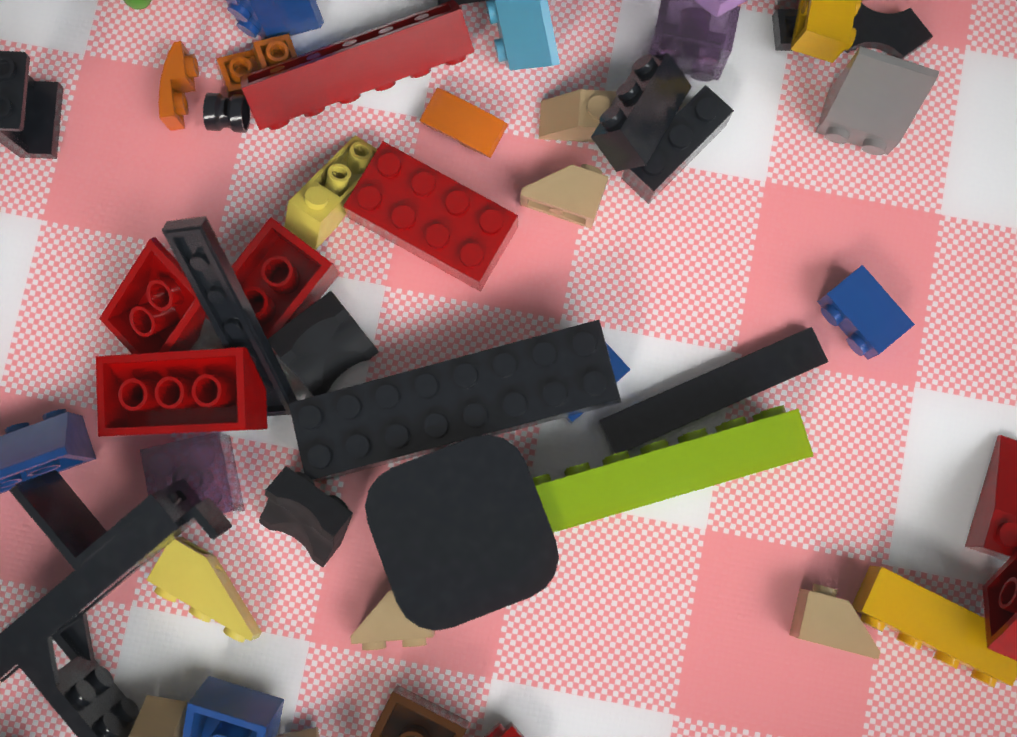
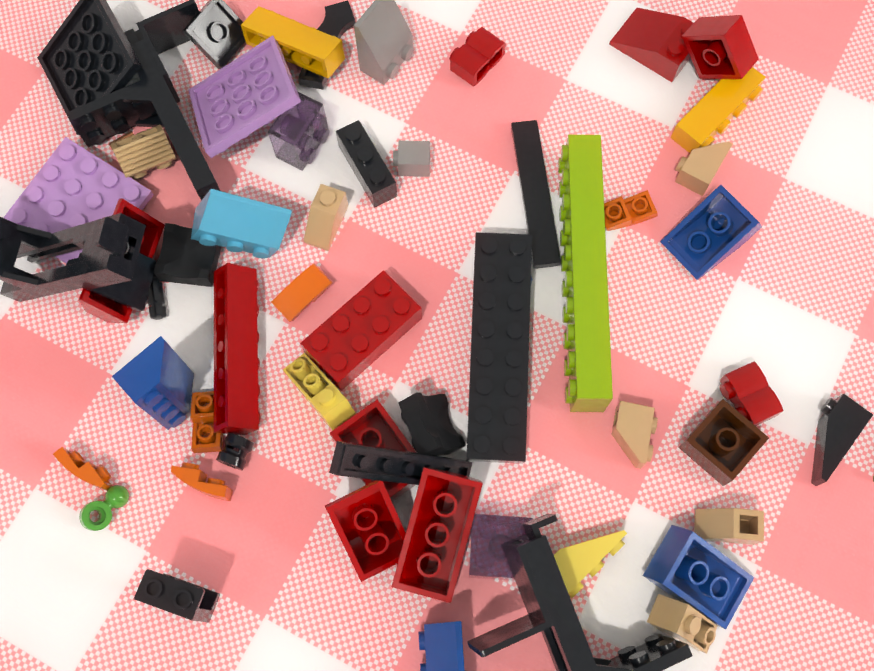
camera: 75 degrees left, 10 degrees down
(306, 514) = (549, 469): black brick -> none
(461, 532) = (593, 358): black tile -> none
(568, 194) = (378, 238): tan slope -> none
(641, 111) = (340, 173): black brick -> none
(707, 205) = (412, 158): none -> light grey brick
(726, 530) = (630, 211): none -> orange slope
(728, 660) = (711, 232): none -> blue slope
(865, 313) = (512, 89): blue brick -> none
(903, 247) = (477, 56): none -> red brick

